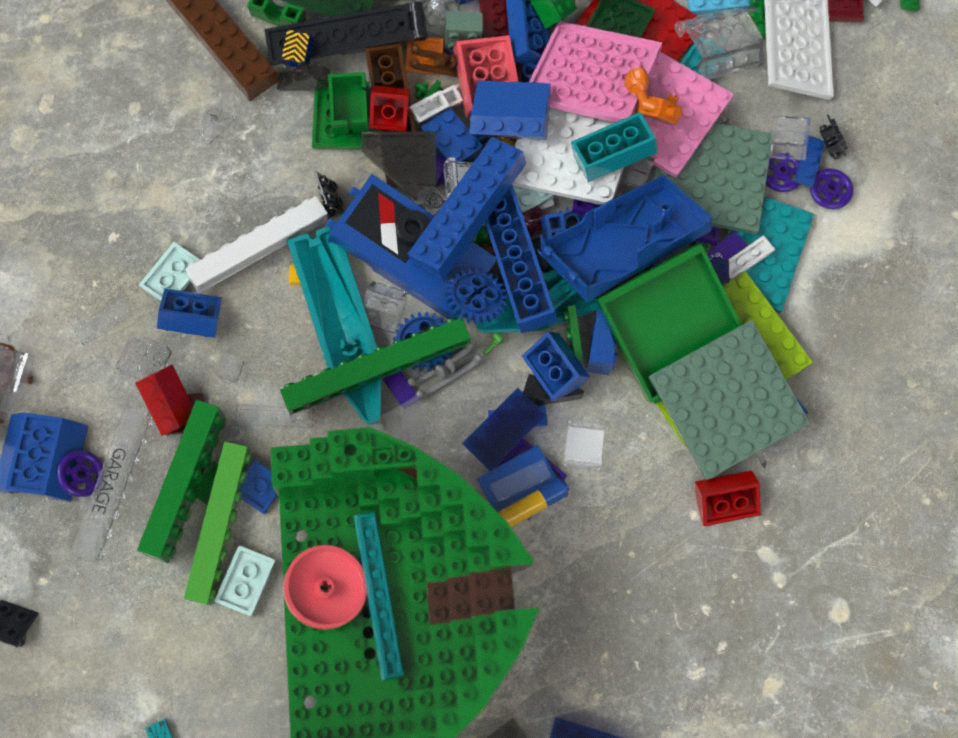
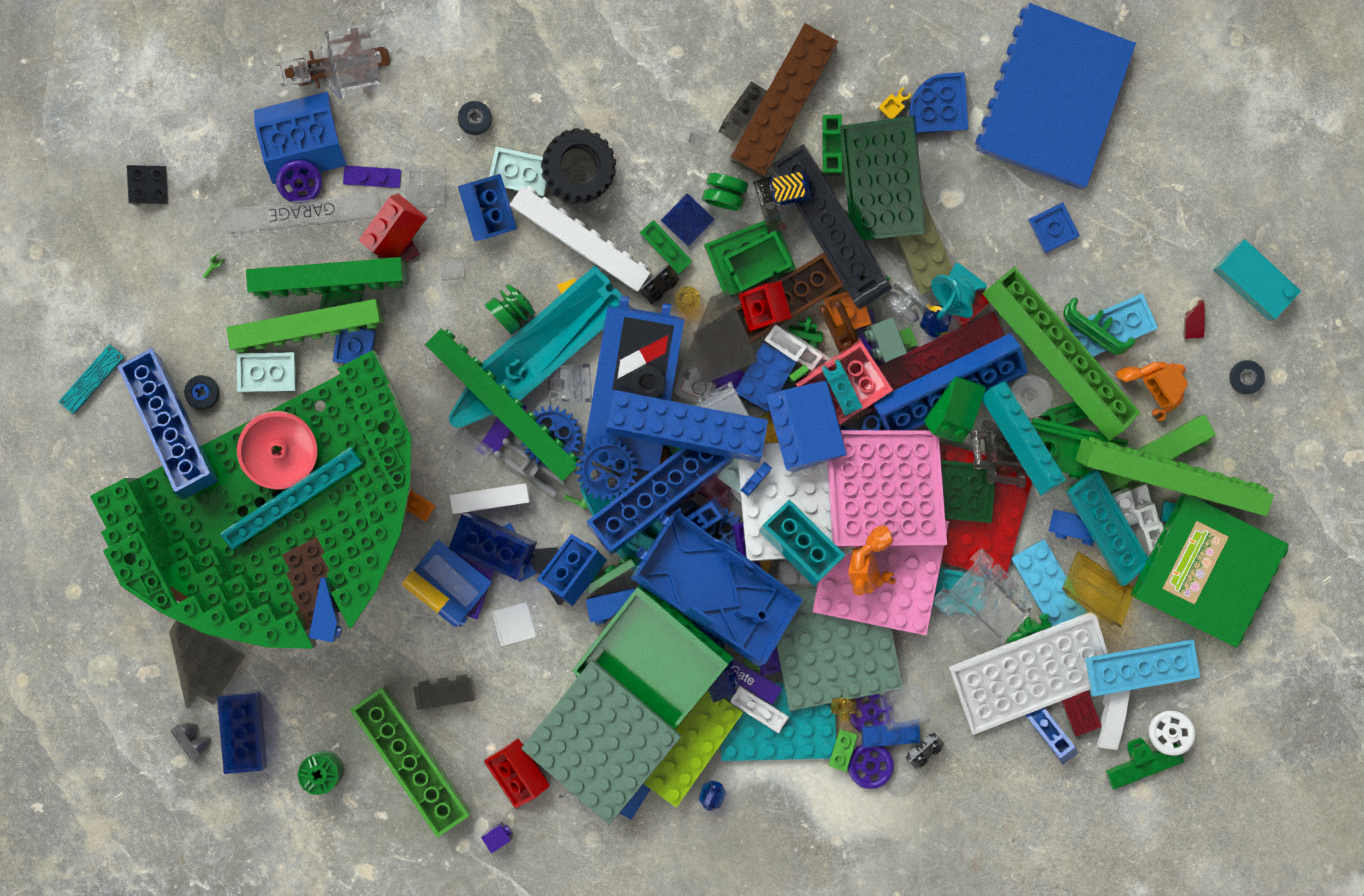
camera: 70 degrees right, 15 degrees up
(103, 301) = (474, 127): none -> black bush
(110, 409) = (371, 176): none -> dark purple piece
(118, 590) = (214, 264): none -> bright green hand
(191, 197) = (596, 148): none -> black tyre
(213, 73) = (742, 111): none -> clear smoke slope
(246, 654) = (210, 387): none -> black bush
(250, 691) = (167, 424): none -> blue brick
(274, 107) = (725, 191): none -> green wheel
(284, 153) = (687, 220): none -> clear blue tile
(291, 327) = (510, 308): none -> green wheel
(297, 179) = (666, 247): none -> green plate
(353, 177) = (687, 299): none -> clear yellow piece
(457, 418) = (490, 498): none -> white slope
(461, 110) = (798, 374): none -> bright green tile
(488, 71) = (842, 388): none -> teal plate
(513, 585) = (325, 617): none -> blue slope
(540, 168) = (756, 479): none -> blue piece
(624, 534) = (444, 692): none -> clear smoke brick
(647, 685) = (330, 767): none -> green wheel
(680, 591) = (411, 761): none -> bright green brick
(775, 181) = (843, 708): none -> clear yellow piece
(783, 540) = (497, 837): none -> dark purple brick
(810, 203) = (843, 750): none -> bright green hinge
(811, 330) = (712, 795): none -> clear blue head
(857, 35) = (1052, 735): none -> blue slope

